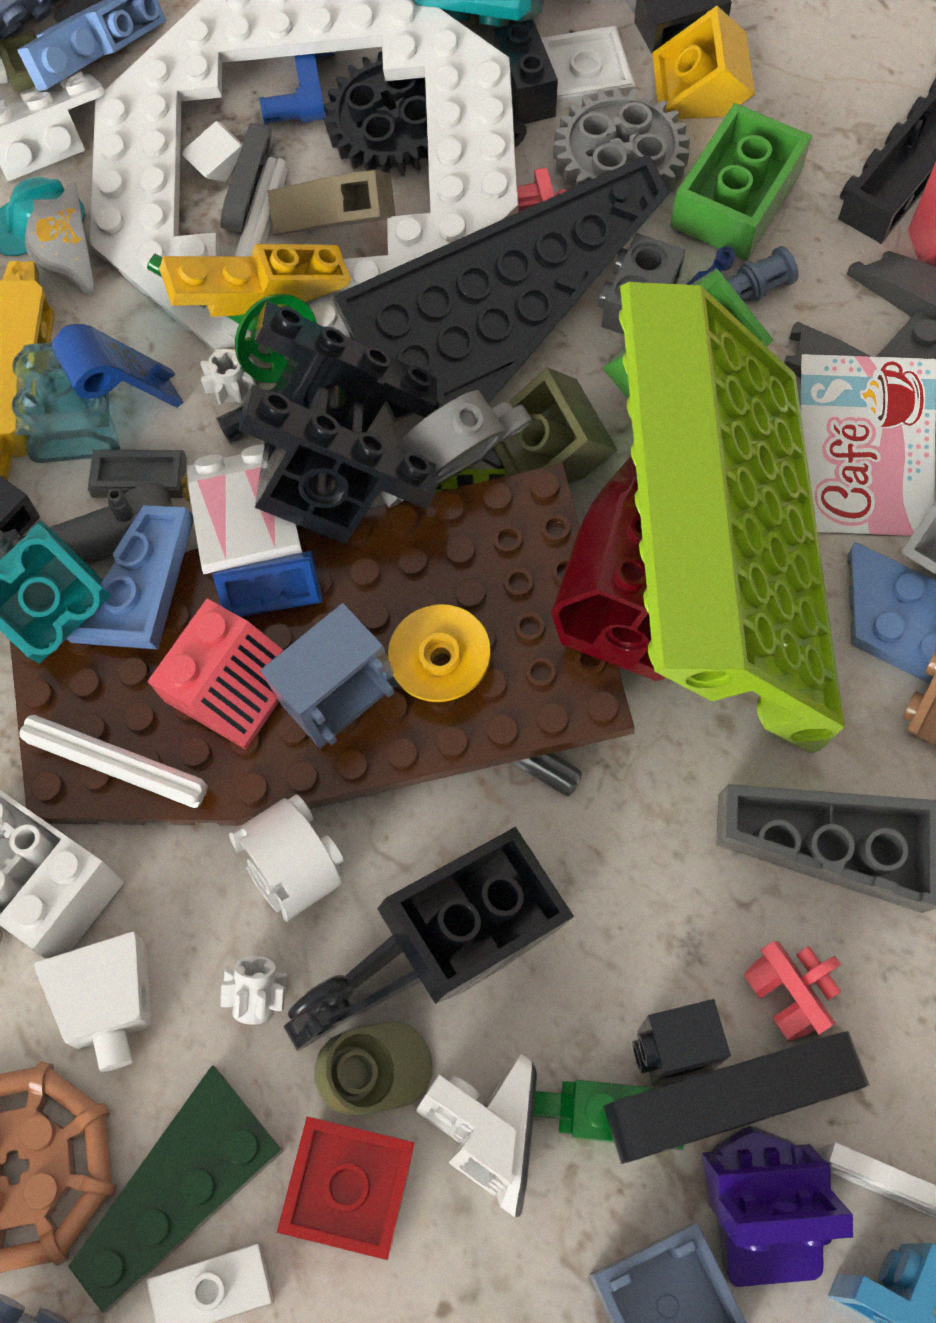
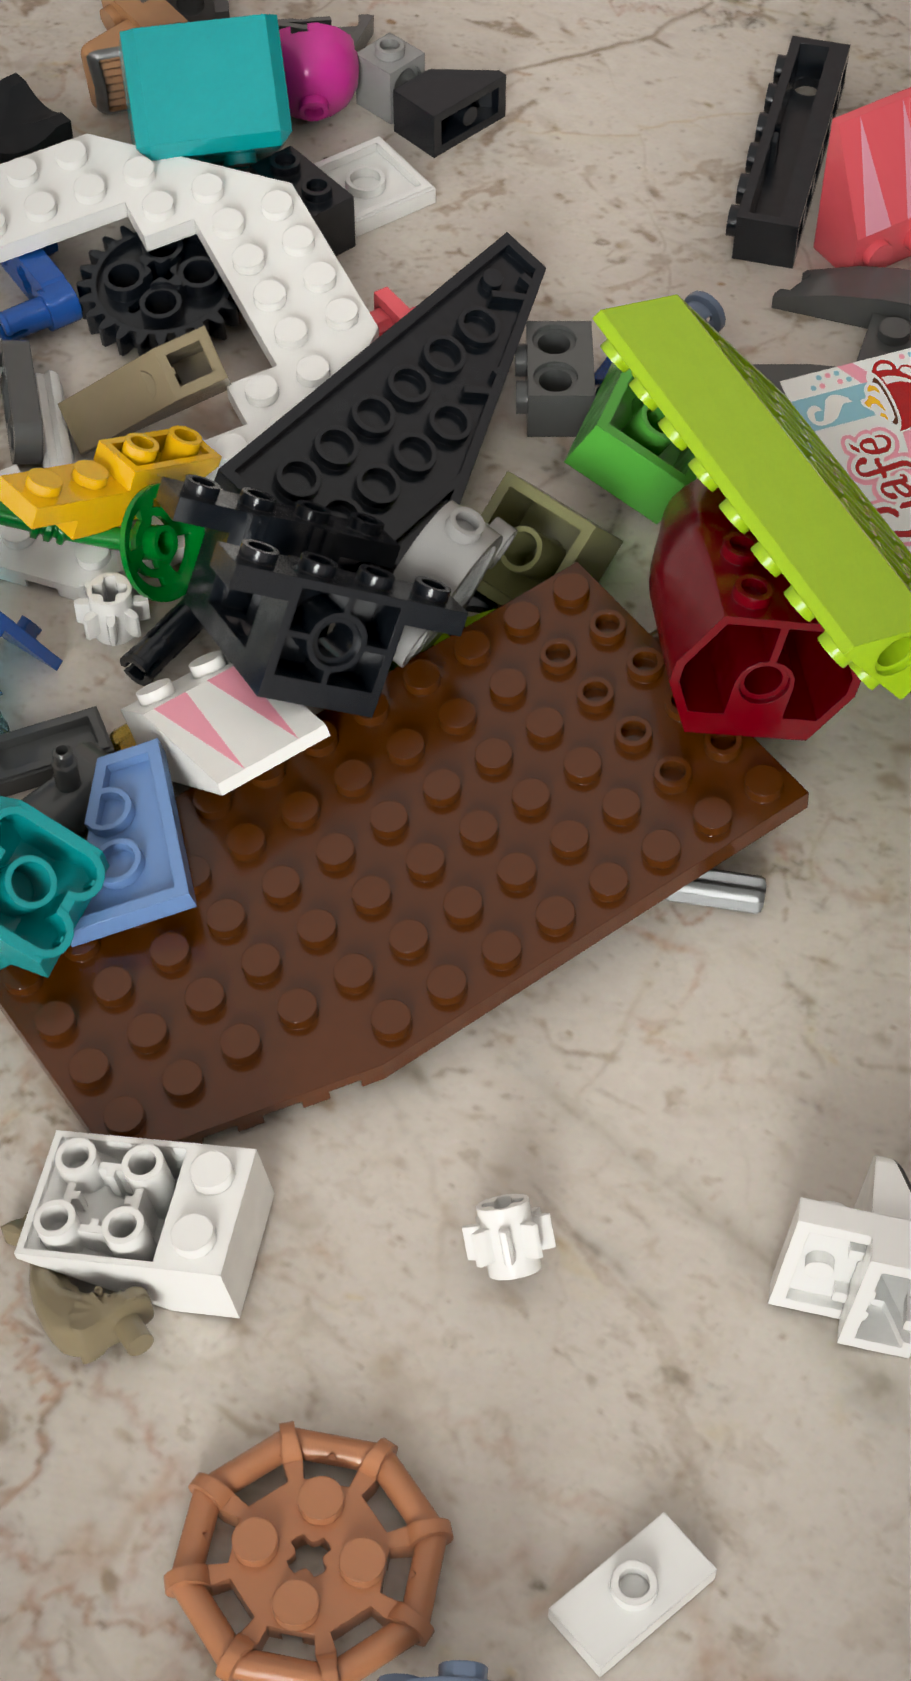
camera: 25 degrees left, 15 degrees down
(100, 996) = (316, 1319): white torso -> none
(114, 761) = (202, 1046): white axle -> none
(184, 1180) = (529, 1493): dark green wing -> none
(217, 674) = (300, 899): coral slope -> none
(269, 585) = (302, 789): blue plate -> none
(288, 857) = (476, 1074): white brick -> none
(330, 675) = (443, 842): sand blue container -> none
(346, 1188) = (737, 1408): red plate -> none
(373, 1068) = (695, 1268): olive cap -> none
(434, 632) = (547, 764): yellow dish -> none
(452, 929) = (729, 1052): black slope -> none
(616, 132) = (439, 236): light grey gear -> none
(704, 68) = (505, 151): yellow slope -> none
(740, 181) = (610, 239): bright green brick -> none

